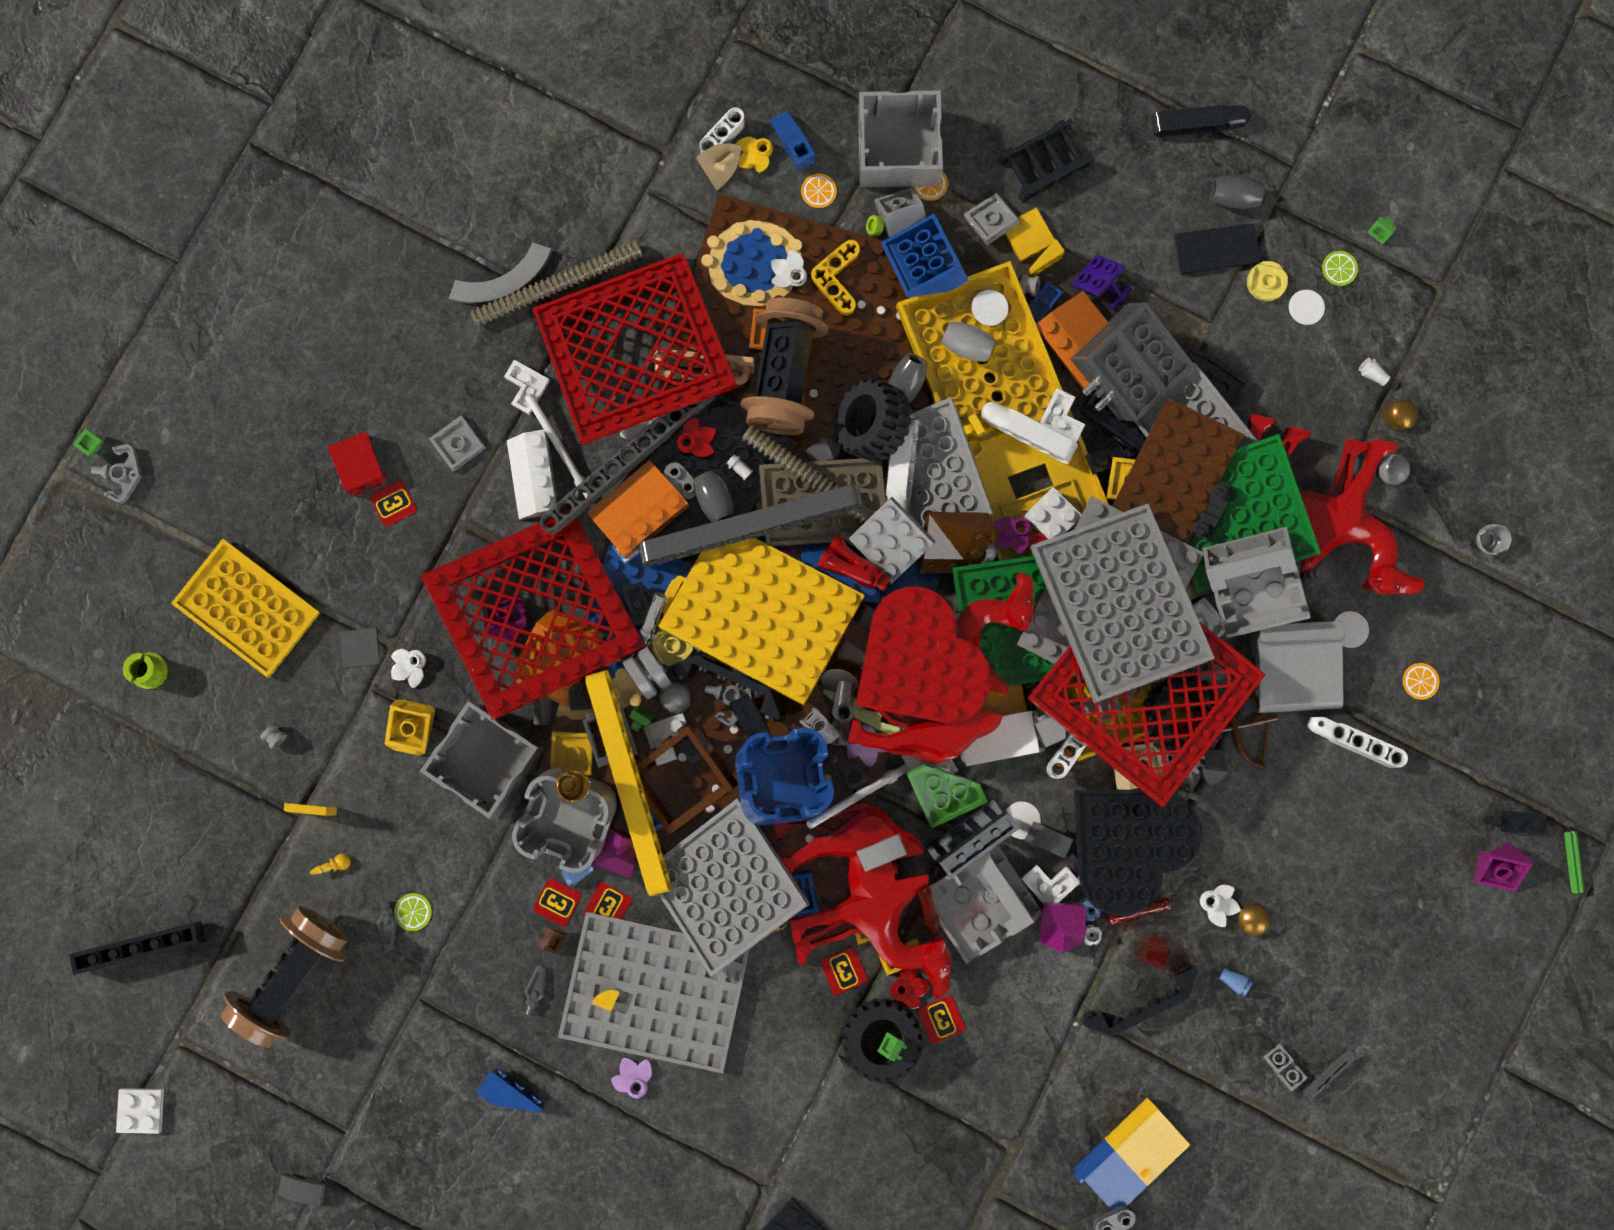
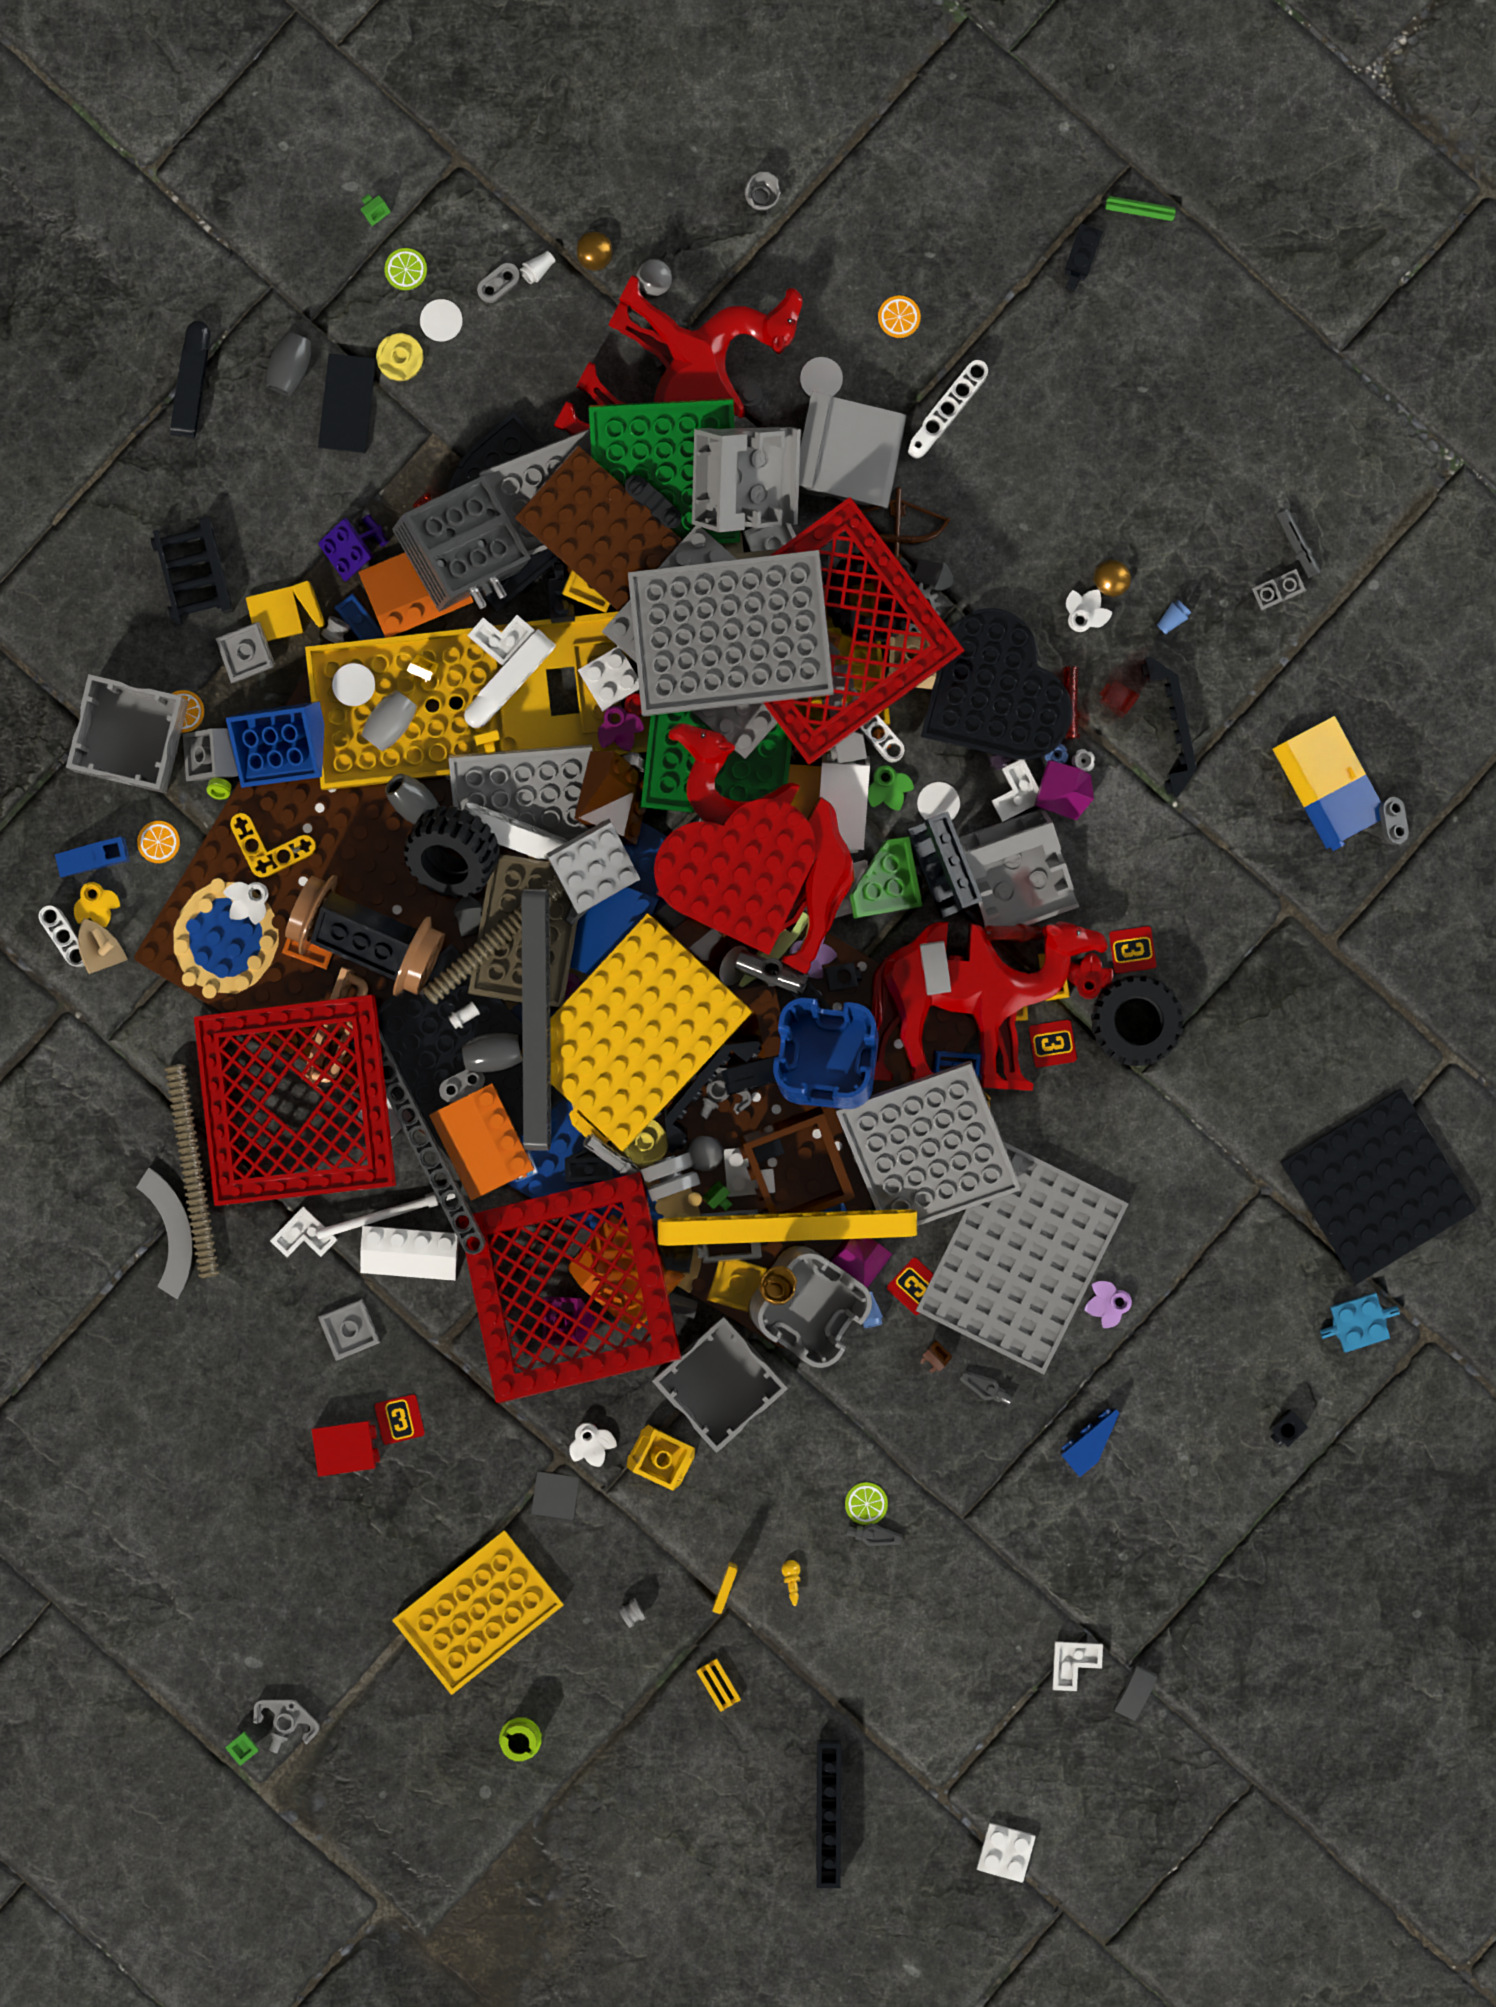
camera: 80 degrees left, 5 degrees up
(217, 837) = (728, 1702): none -> yellow tile
(257, 1016) = (909, 1660): brick -> none
(319, 1123) = (1069, 1657): none -> white plate
(556, 902) = (896, 1341): sticker -> none
(606, 999) = (1016, 1310): yellow tile -> none
(699, 437) = (418, 1052): red plate -> none
(819, 722) = (776, 1000): light grey piece -> none
(845, 561) = (604, 923): red piece -> none
(888, 778) = (854, 938): white bar -> none
(891, 1047) = (1145, 1011): bright green tile -> none
(1019, 358) = (423, 668): none -> yellow tile
(1021, 777) = (890, 791): none -> bright green plate
(1049, 840) = (968, 779): dark grey slope -> none
(1351, 343) = (498, 283): none -> light grey plate
(1502, 867) = (1126, 290): magenta slope -> none

